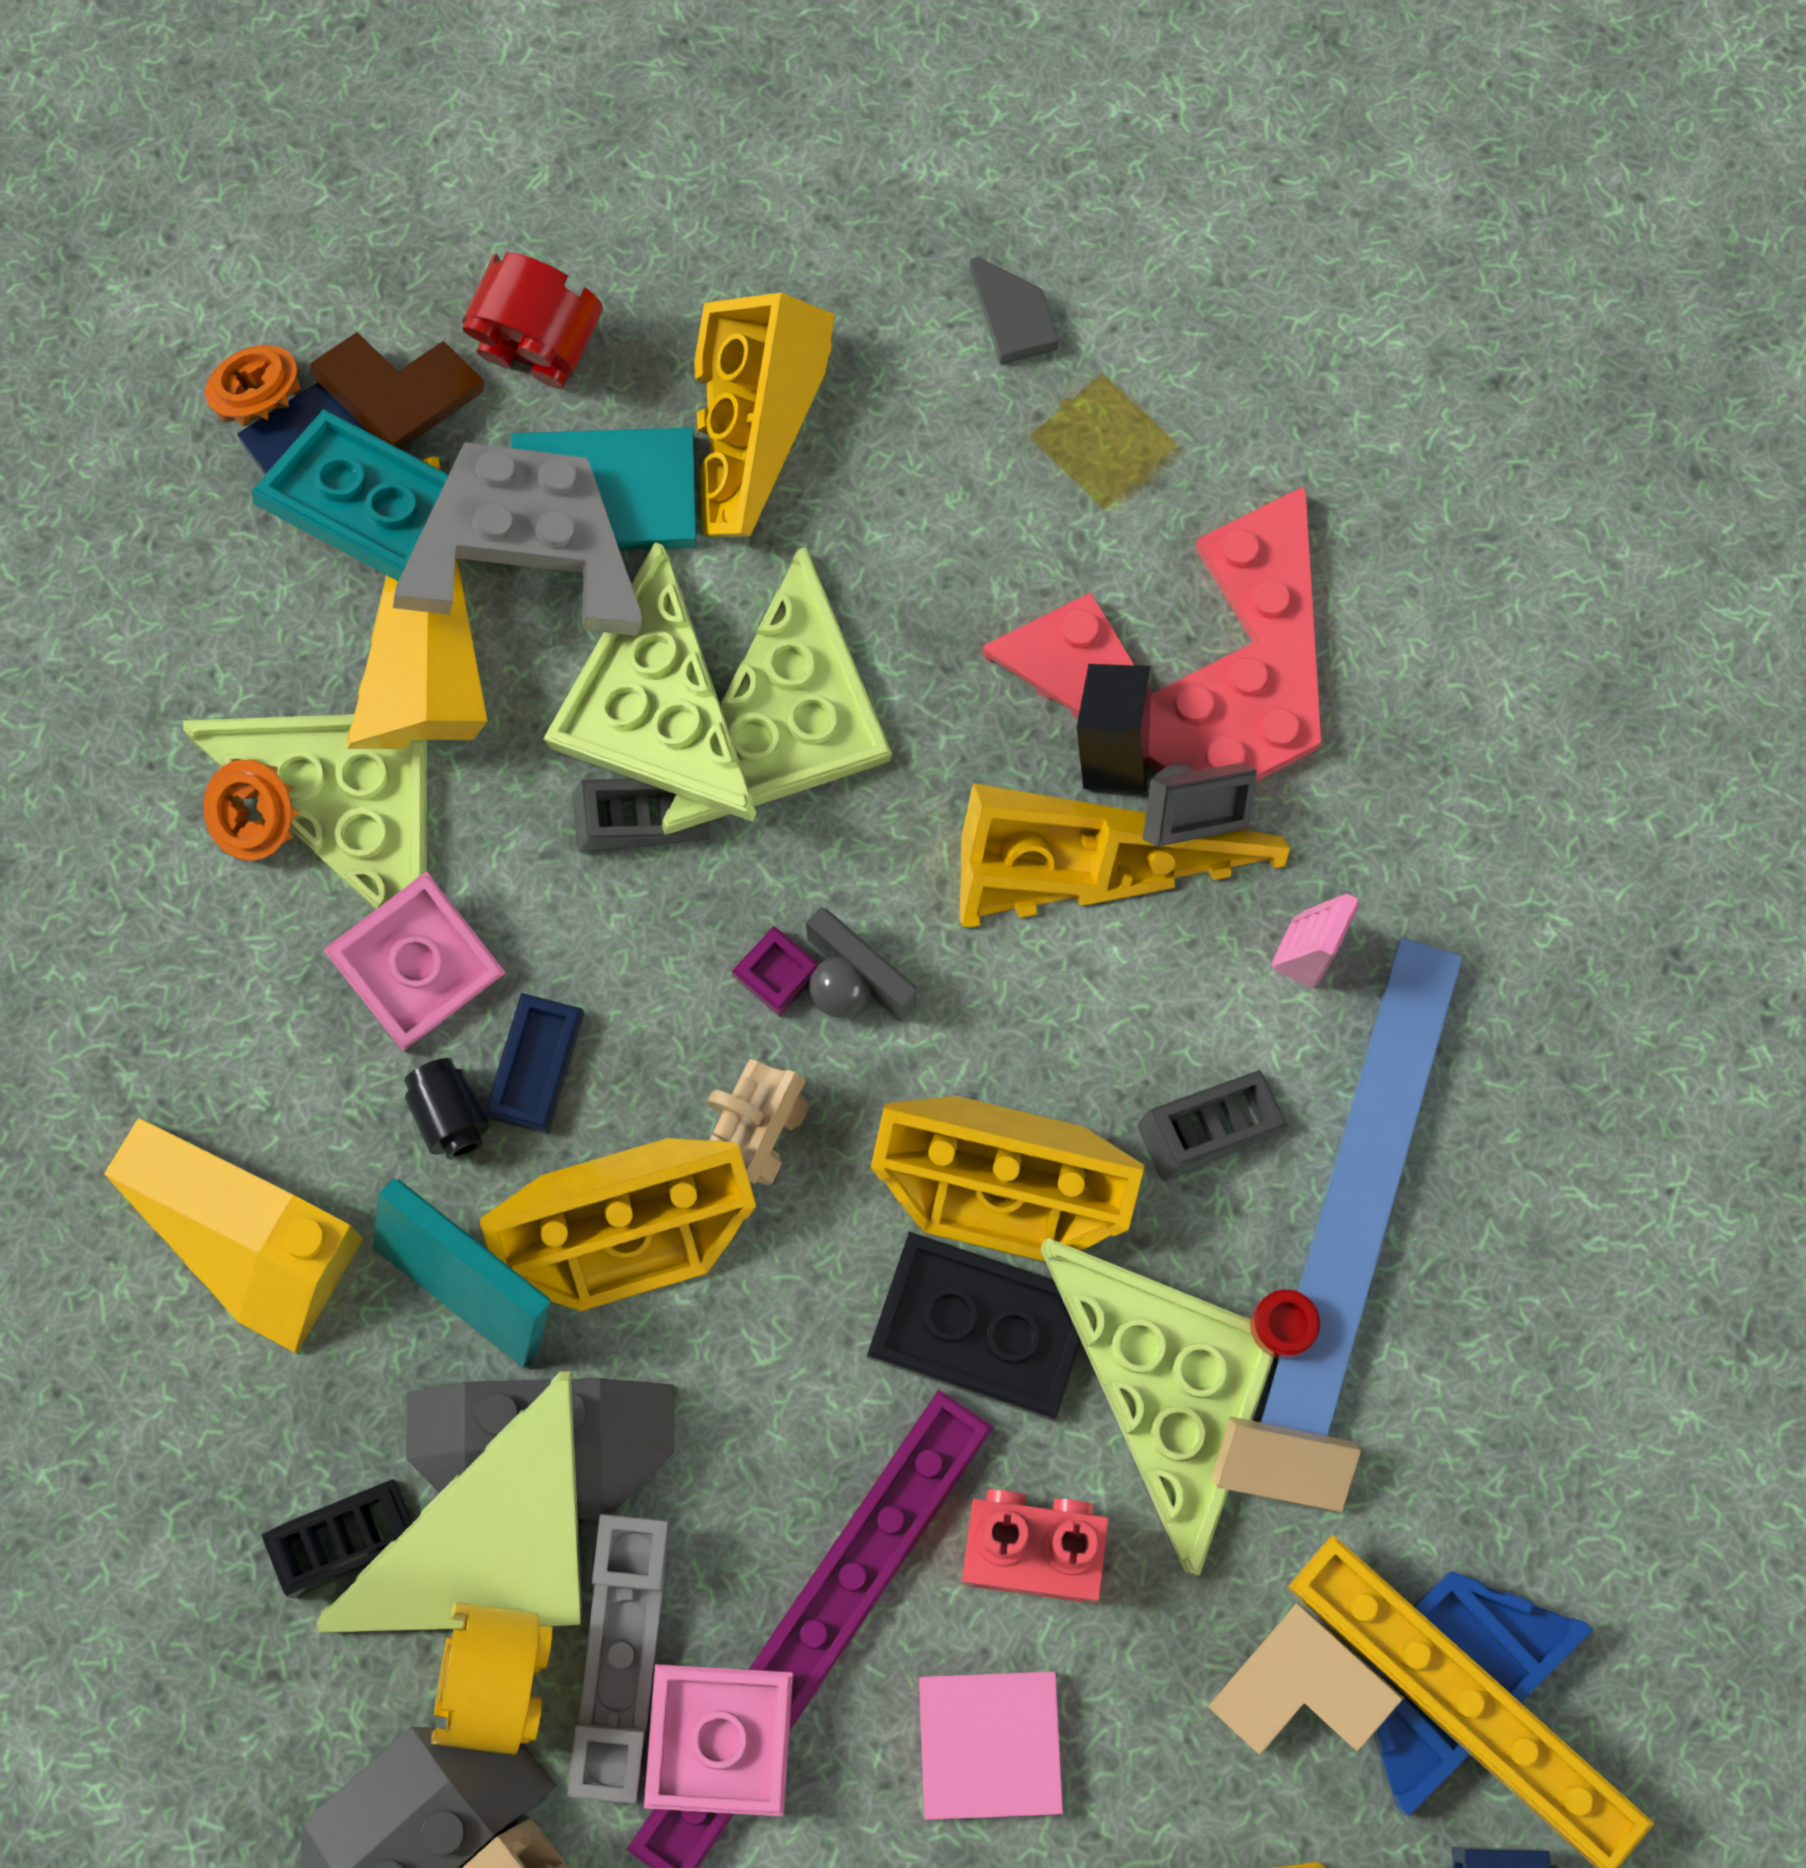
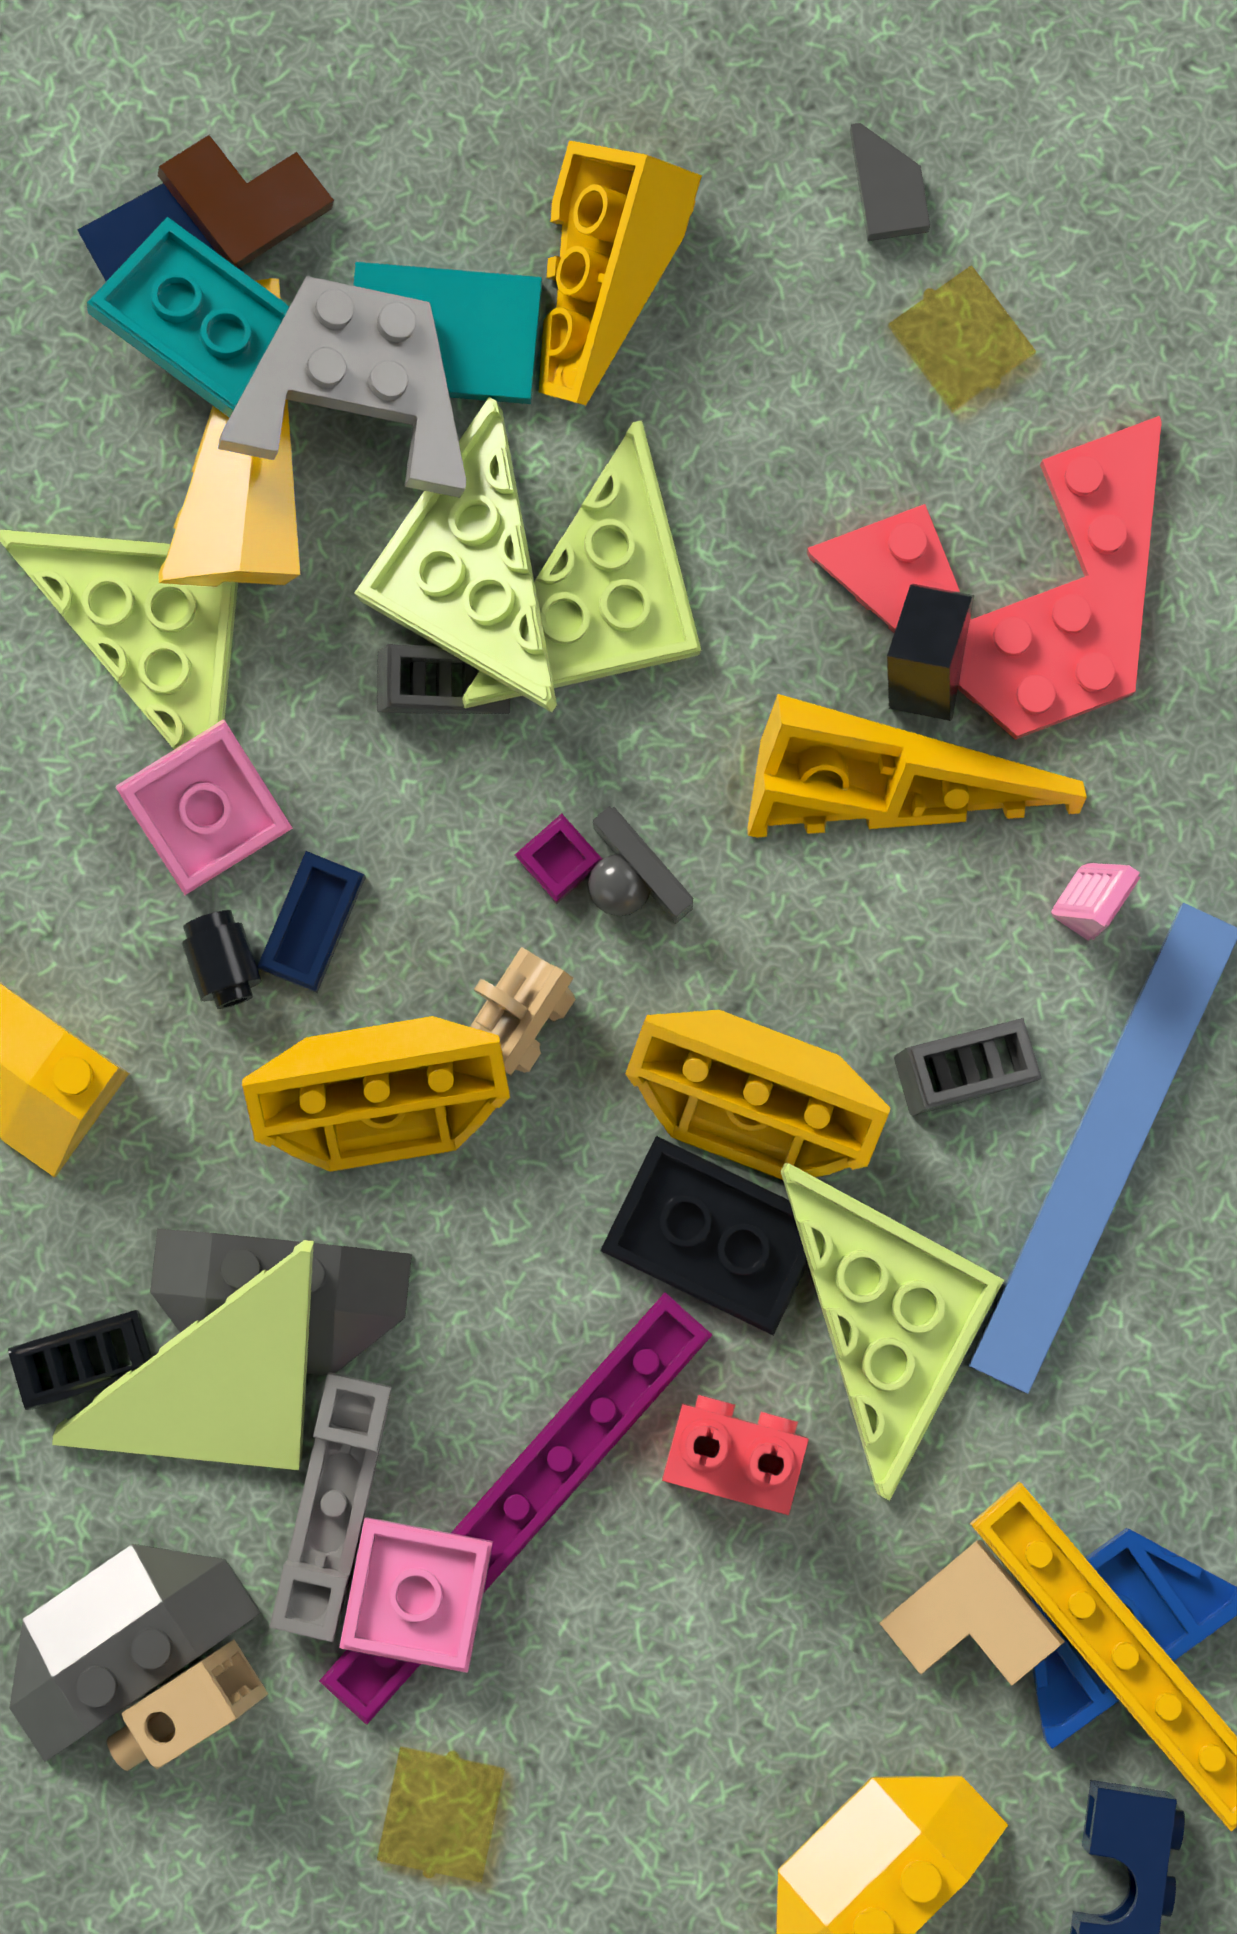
camera: 15 degrees right, 10 degrees up
(228, 816) = (34, 633): orange gear -> none
(259, 366) = (101, 157): orange gear -> none
(460, 1272) = (218, 1125): teal tile -> none
(490, 1678) = (208, 1513): yellow brick -> none
(531, 317) = (389, 141): red brick -> none
(990, 1745) = (669, 1631): bright pink tile -> none
(1198, 803) = (998, 744): dark grey tile -> none
(1285, 1324) = (1007, 1273): red tile -> none
(1285, 1464) = (987, 1408): tan tile -> none

